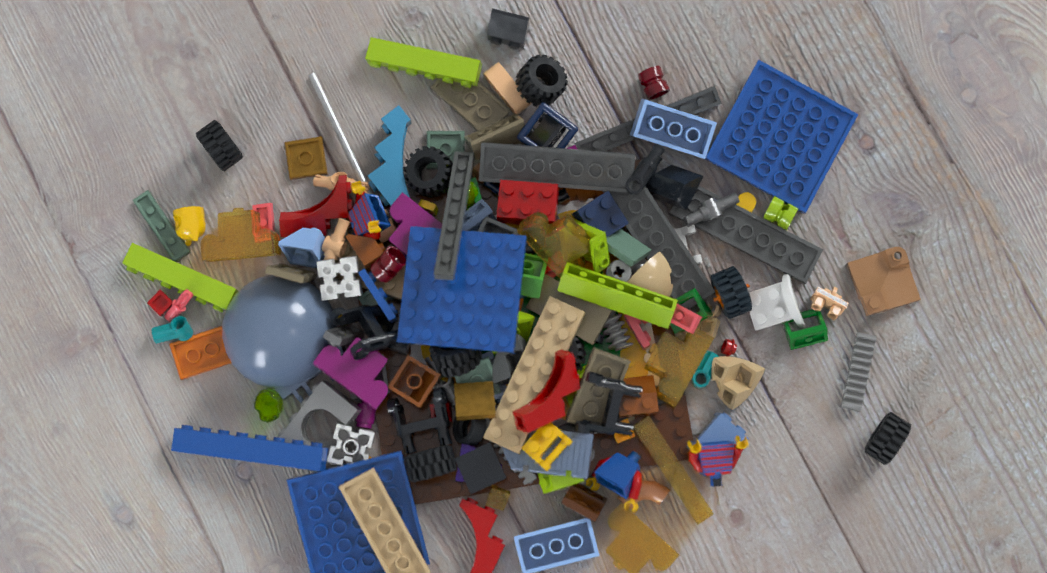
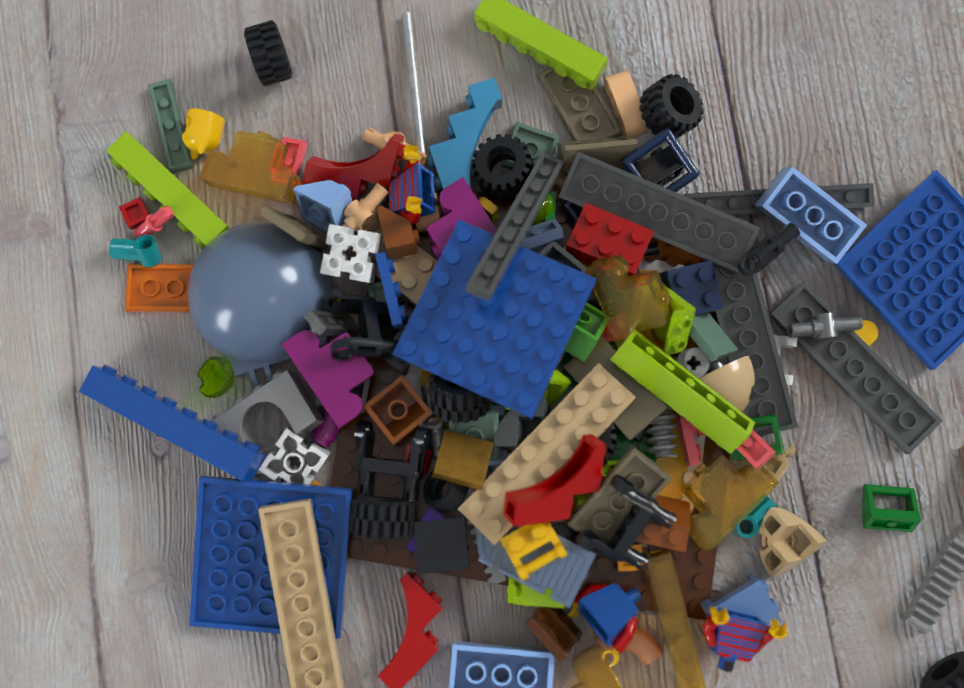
camera: 10 degrees right, 0 degrees up
(306, 158) = (365, 105): pearl gold tile -> none
(388, 264) = (415, 257): dark red wheel -> none
(497, 498) = (450, 586): clear yellow plate -> none
(508, 29) = (652, 35): black slope -> none
(653, 82) = (800, 153): dark red wheel -> none
(675, 186) = (789, 285): black slope -> none
(728, 347) = (789, 499): red plate -> none
(731, 292) = (819, 435): black wheel -> none
(775, 305) = (862, 467): white piece -> none
(780, 213) = (904, 359): lime wheel -> none
(829, 300) = (931, 484): light nougat hips -> none

